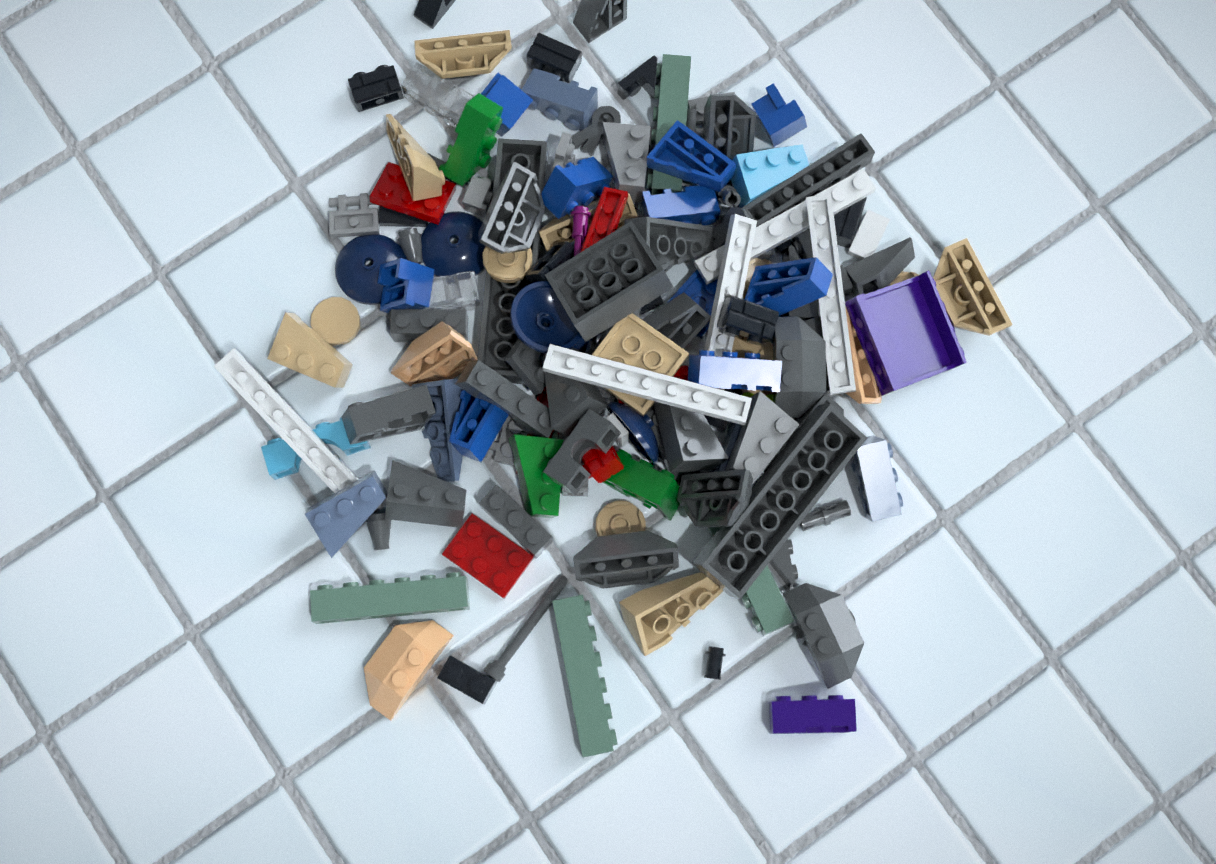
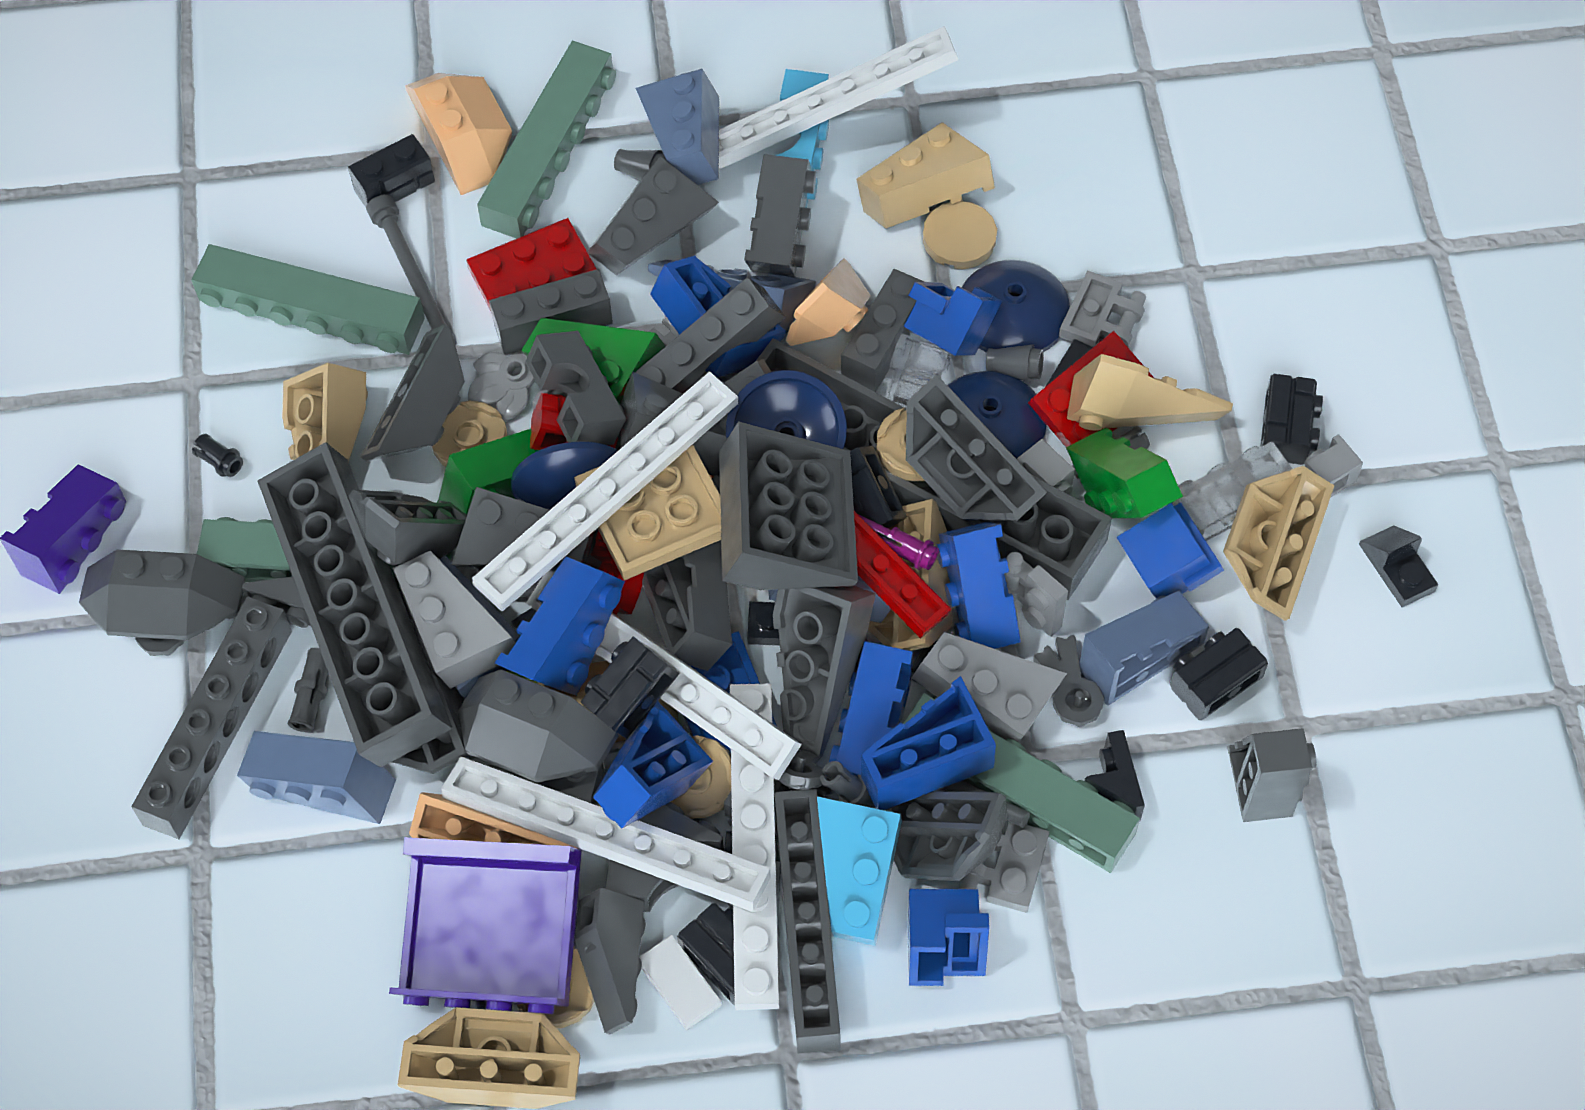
camera: 120 degrees right, 15 degrees down
(397, 53) = (1336, 465): none -> light grey brick
(580, 526) = (499, 385): none -> light grey plate
(873, 554) = (212, 718): none -> dark grey brick

